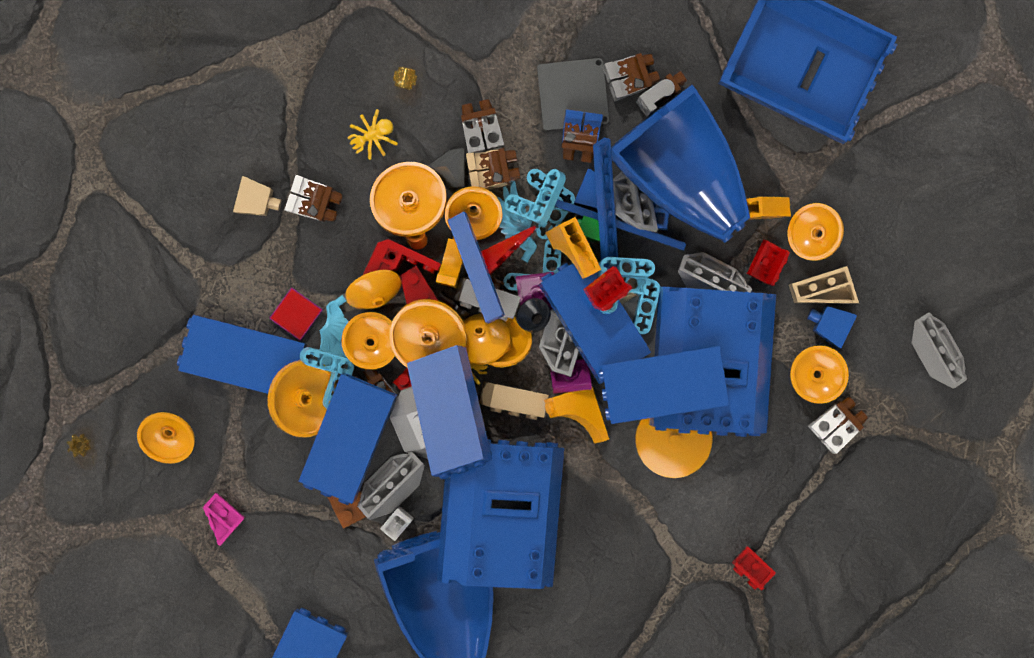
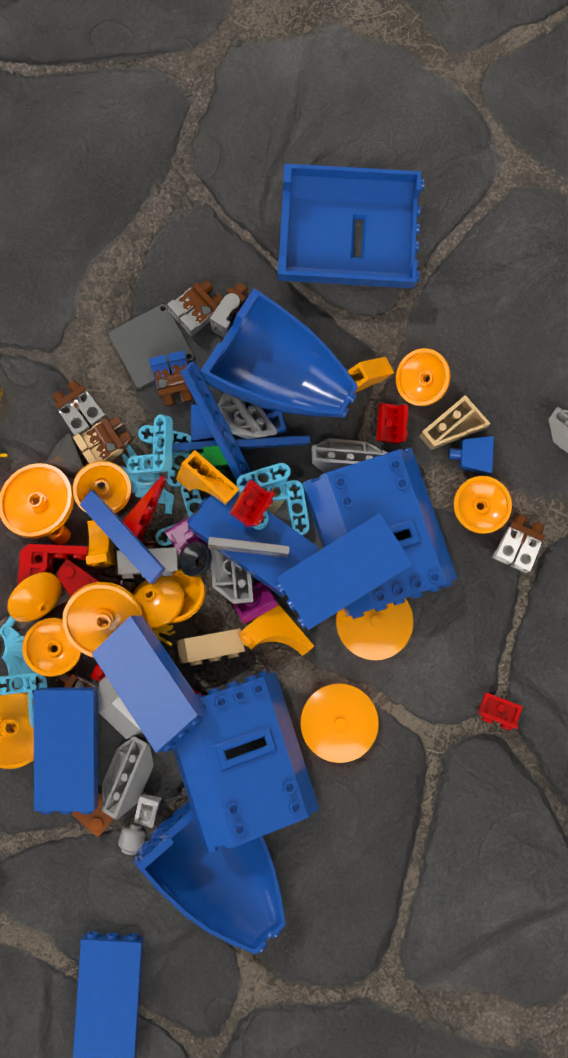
camera: 30 degrees left, 5 degrees down
(373, 543) = (131, 839): none -> light grey head
(587, 326) = (248, 547): none -> light grey tile
(602, 517) = (339, 723): none -> light orange dish

